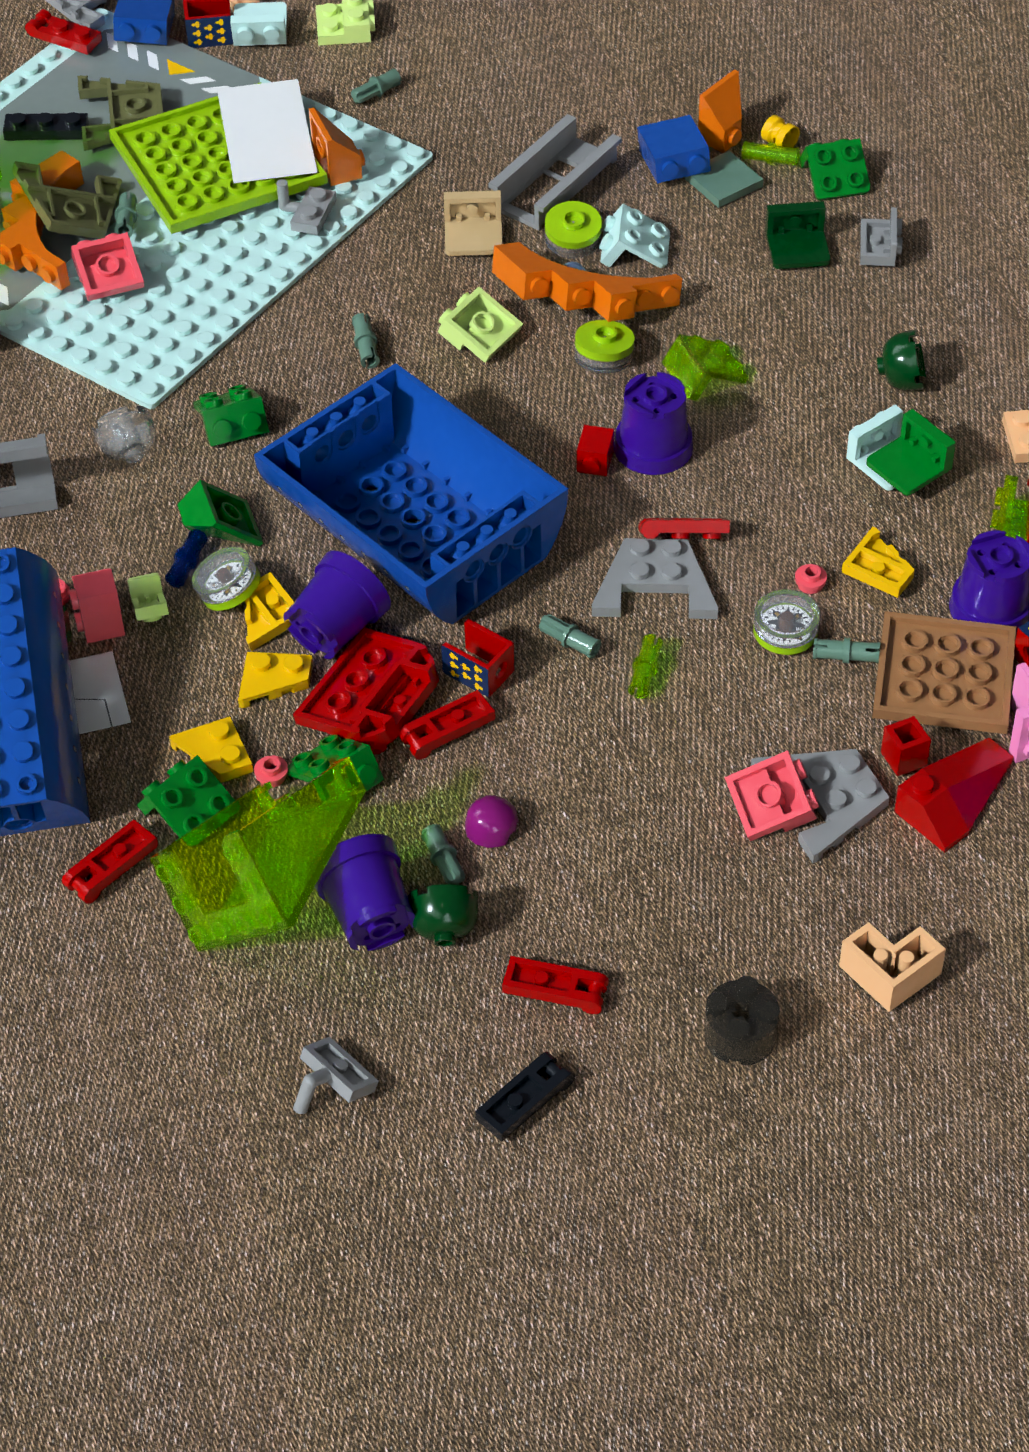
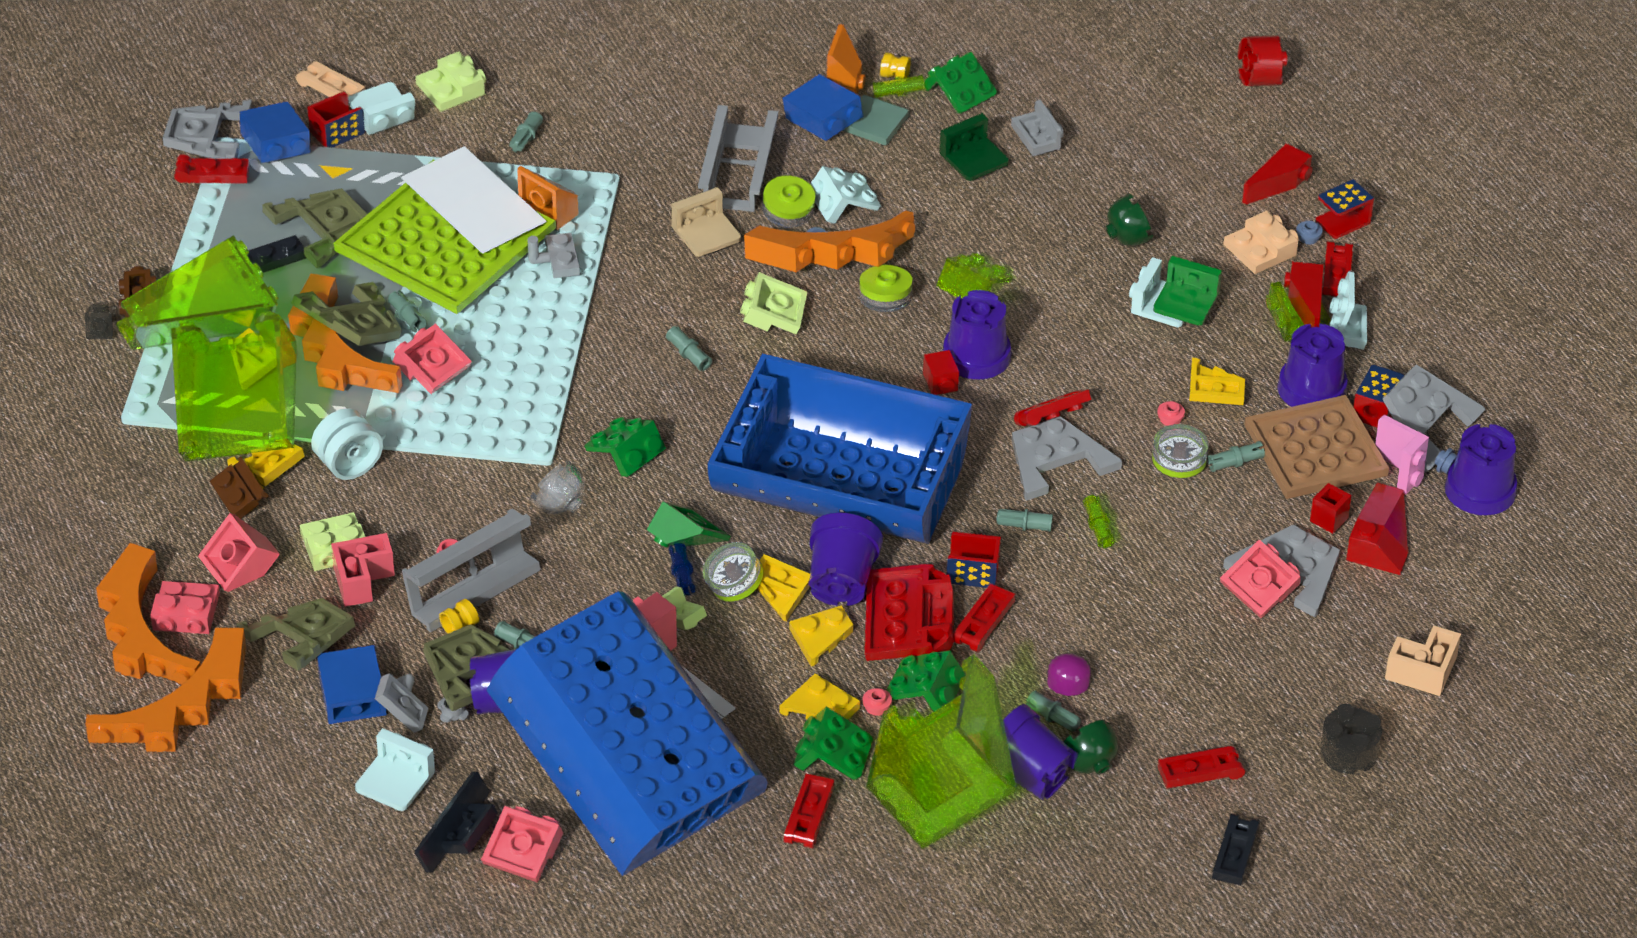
camera: 30 degrees left, 5 degrees down
(335, 1067) = (1092, 884): light grey plate -> none

